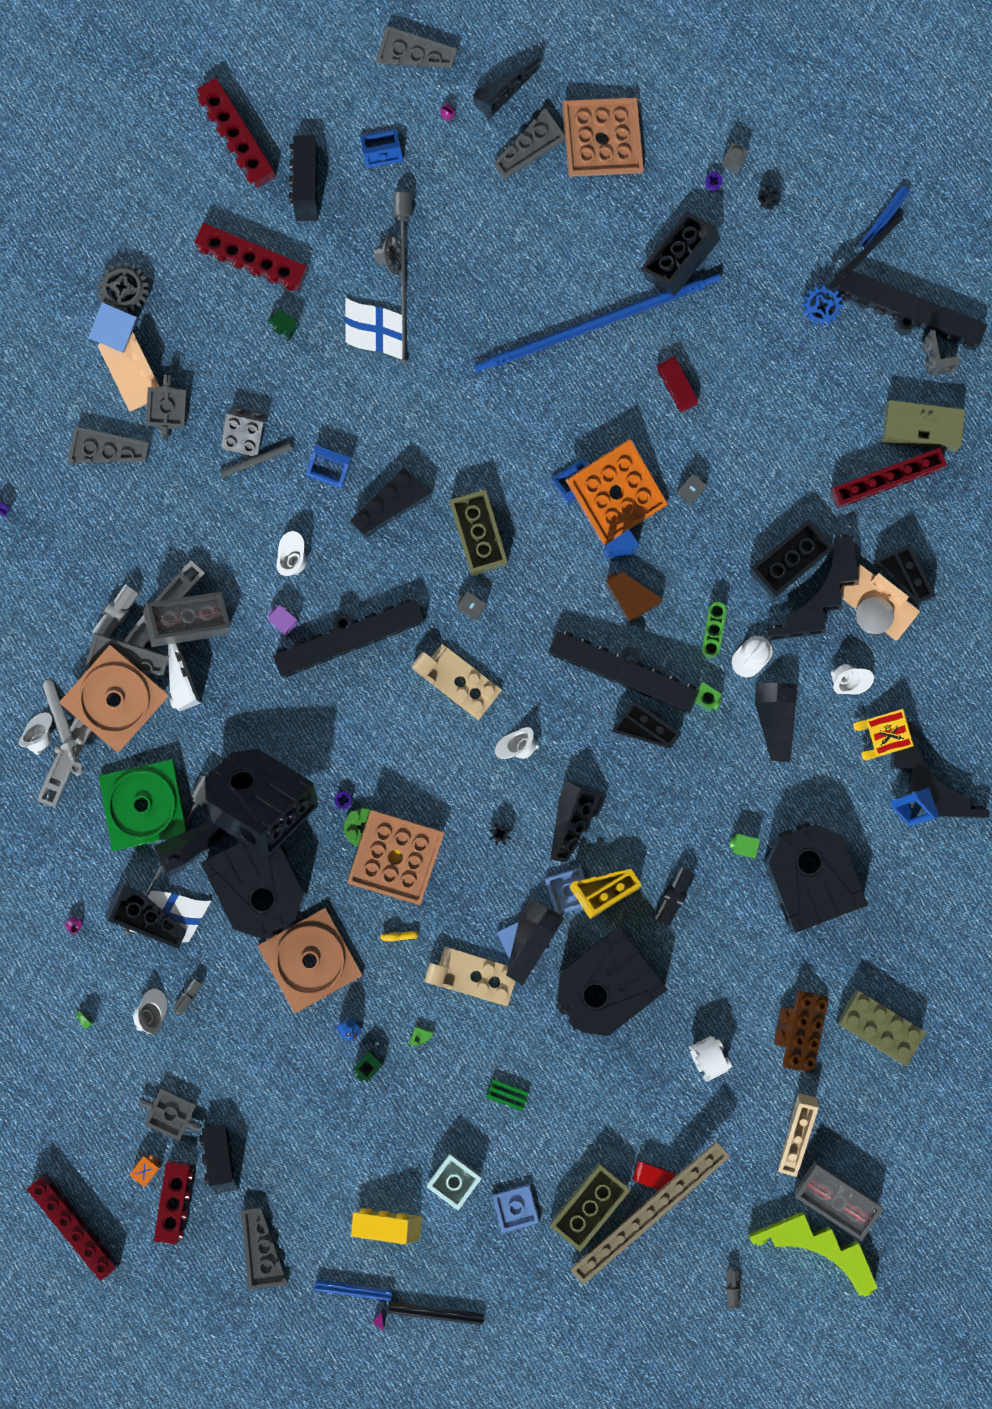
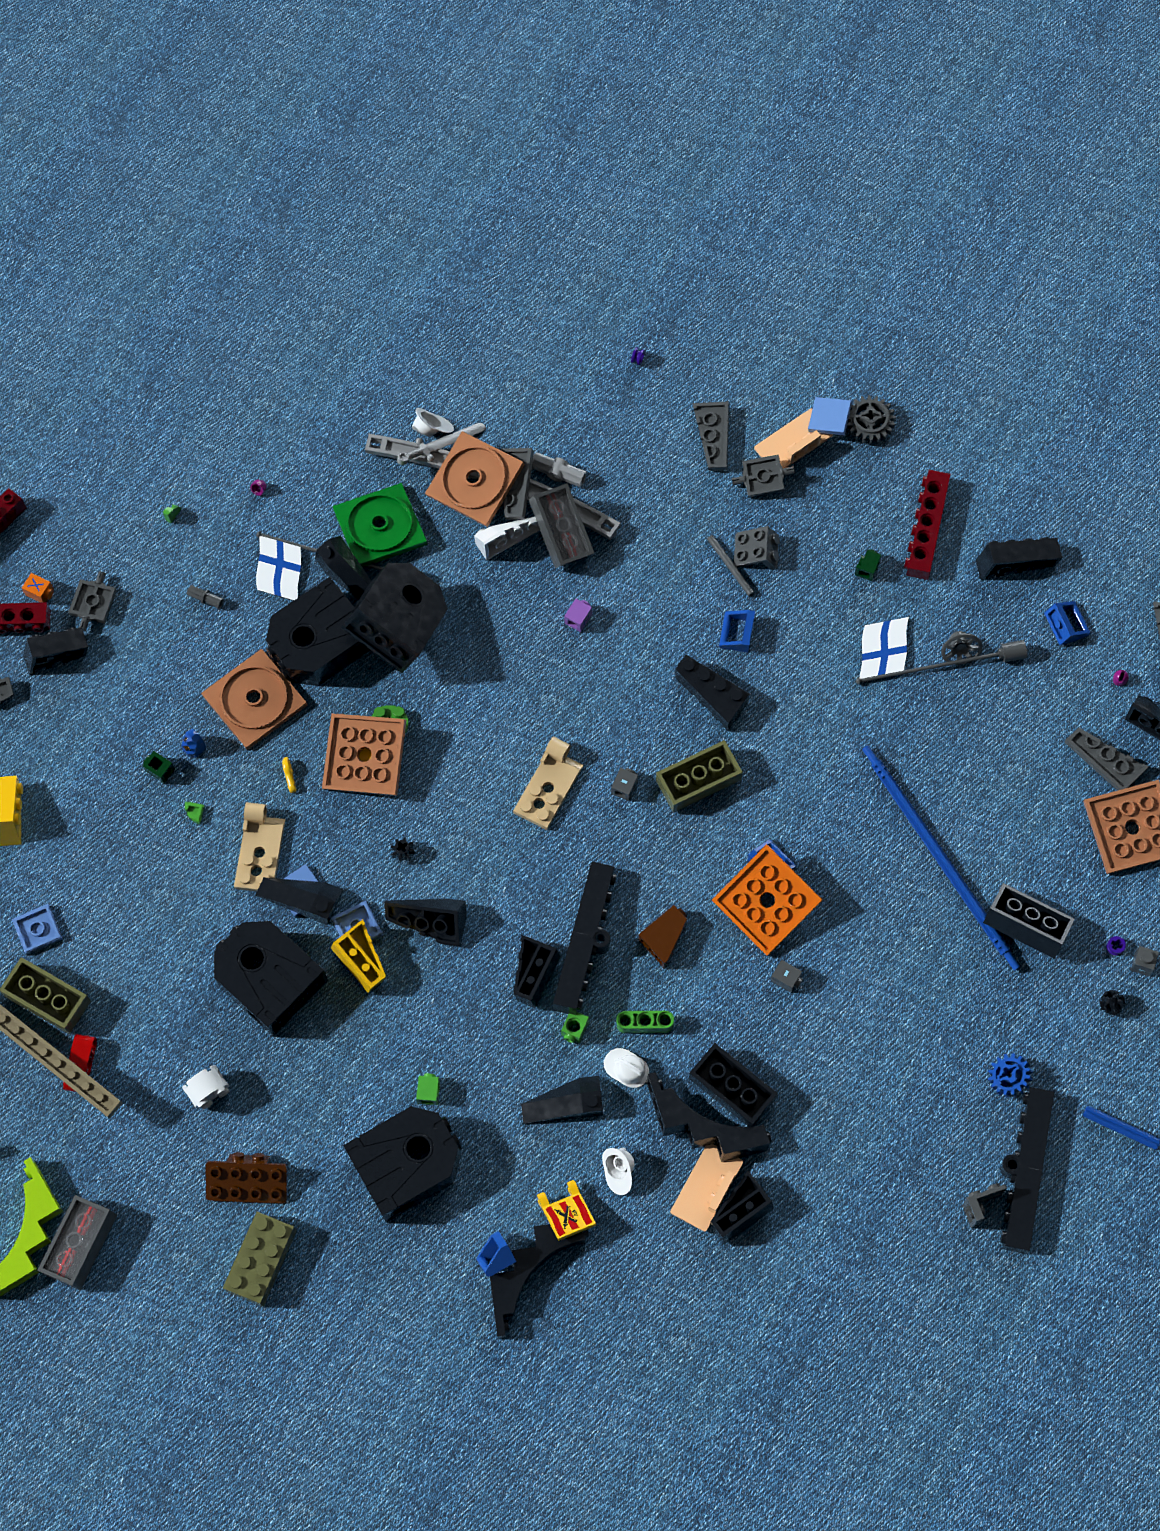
camera: 85 degrees right, 15 degrees down
(140, 914) = (273, 541): black wedge -> none
(151, 1012) = (186, 566): white piece -> none
(213, 91) = (1017, 520): dark red brick -> none
(291, 554) = (642, 611): white piece -> none
(346, 805) = (409, 696): dark purple bush -> none
(348, 639) = (572, 678): black hinge -> none
(454, 1181) = (56, 863): light aqua brick -> none
(502, 1101) = (150, 886): green tile -> none
(517, 744) = (493, 850): white piece -> none
(621, 546) = (713, 912): blue tile -> none
(674, 896) = (366, 1029): black piece -> none
(677, 384) = (893, 943): dark red beam -> none
(798, 1134) = (141, 1192): tan slope -> none
(844, 273) = (1045, 1086): black bar -> none
(874, 615) = (691, 1183): light grey dish -> none
(888, 478) = (840, 1173): dark red brick -> none
(923, 425) = (904, 1201): olive brick -> none

